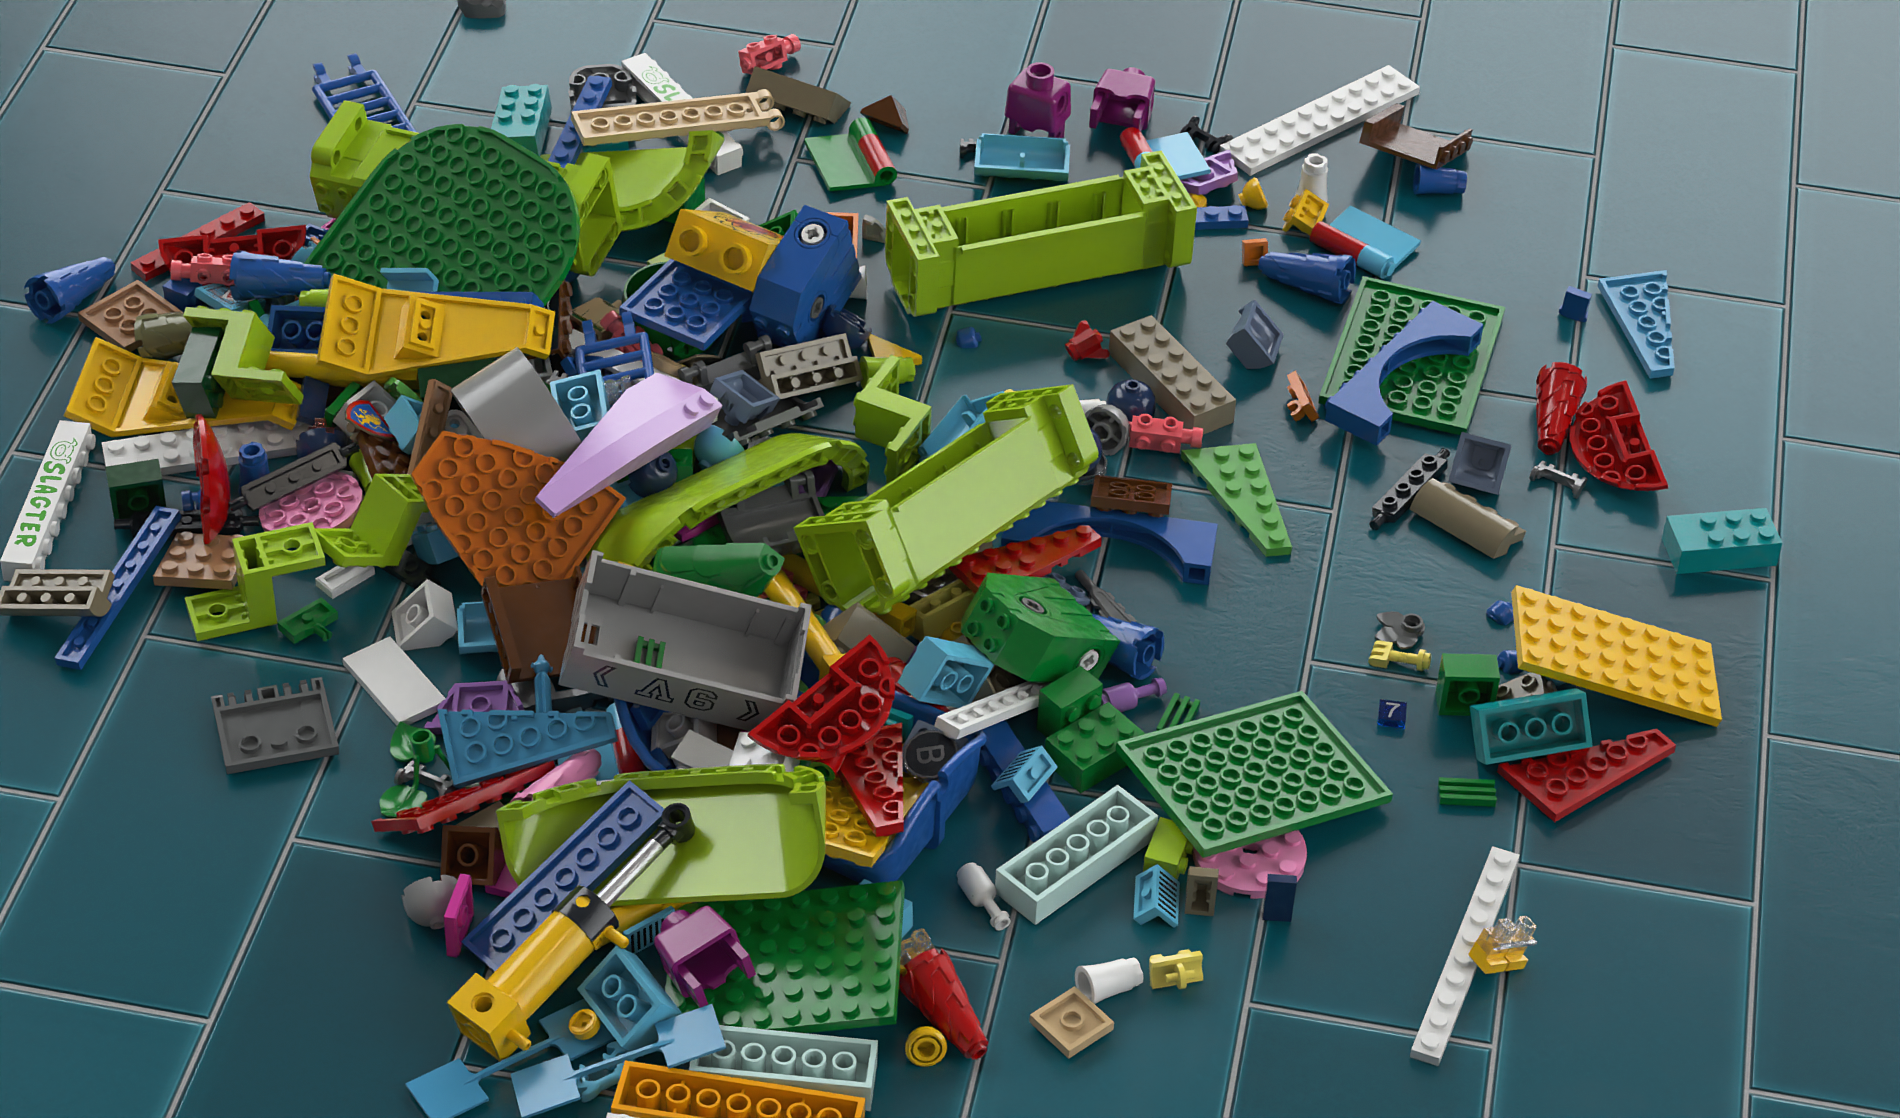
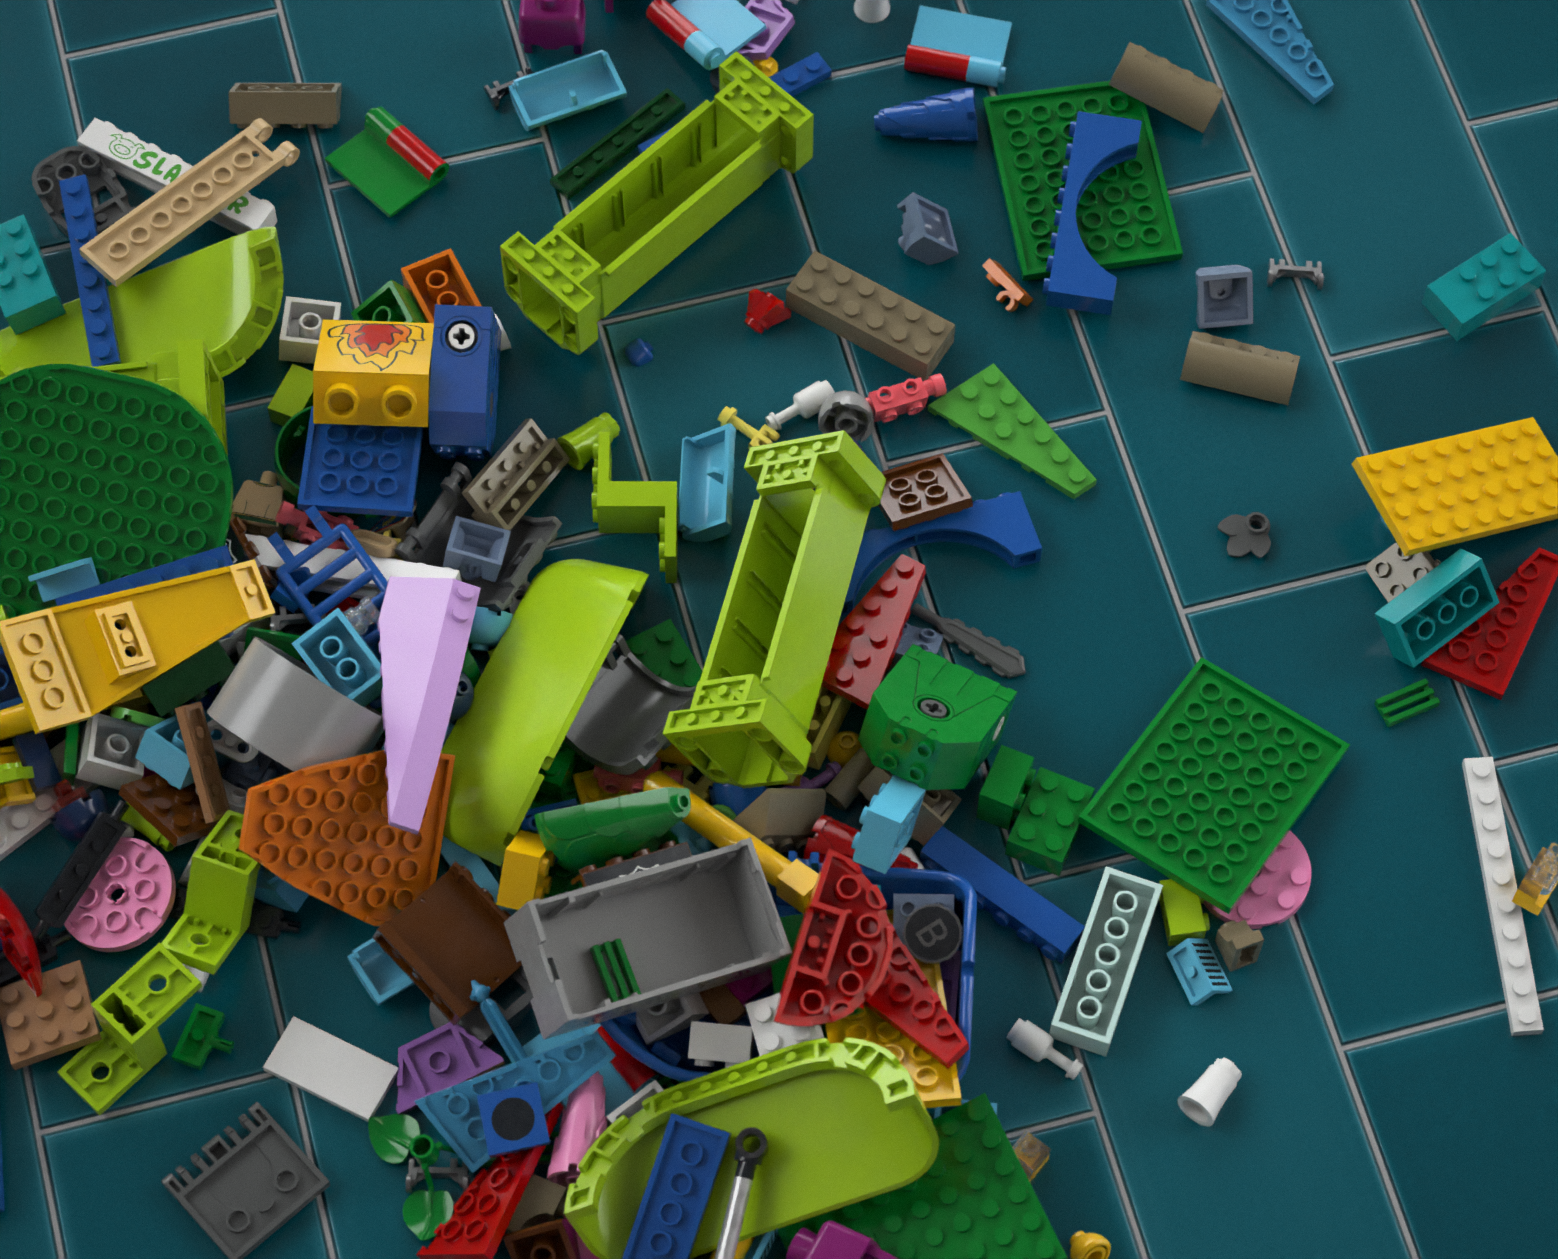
camera: 25 degrees left, 20 degrees up
(252, 463) = (29, 879): blue plant -> none
(365, 417) = (121, 770): shield -> none
(424, 618) = (315, 978): white slope -> none
(505, 750) = (513, 1119): none -> blue tile
(775, 53) = (221, 59): coral brick -> none
(845, 322) = (518, 402): dark blue cylinder -> none
(873, 229) = (467, 252): light grey tile -> none
(883, 348) = (574, 411): yellow tile -> none
(887, 113) = (396, 88): reddish brown slope -> none
(943, 1000) = (1083, 1197): red cone -> none
(990, 710) = (955, 844): white plate -> none
(1026, 773) = (1013, 894): medium azure panel -> none
(1071, 1022) = (1202, 1155): tan plate -> none
(1126, 697) = (1043, 743): medium lavender piece -> none
(1132, 398) = (848, 367): dark blue cylinder -> none
(1137, 646) = (1023, 675): blue cone -> none
(1176, 969) = (1265, 1049): light yellow hips -> none
(1183, 704) = (1100, 720): green tile -> none
(1253, 195) = (819, 35): yellow brick -> none
(1253, 250) = (860, 111): orange tile -> none
(1279, 897) = (1317, 922): dark blue tile -> none
(1305, 212) = (882, 36): yellow bracket -> none
(1383, 653) = (1250, 571): light yellow hinge -> none
(1392, 713) = (1292, 641): clear blue tile -> none
(1403, 492) = (1165, 351): black plate -> none
(1466, 682) = (1351, 580): green brick -> none
(1501, 612) = (1325, 467): blue piece -> none
(1508, 661) = (1364, 523): blue piece -> none
(1523, 317) = (1166, 87): none -> dark tan brick
(1558, 399) = (1252, 182): red cone -> none
(1575, 304) = (1202, 43): blue tile -> none
(1612, 441) = (1328, 211): red brick -> none

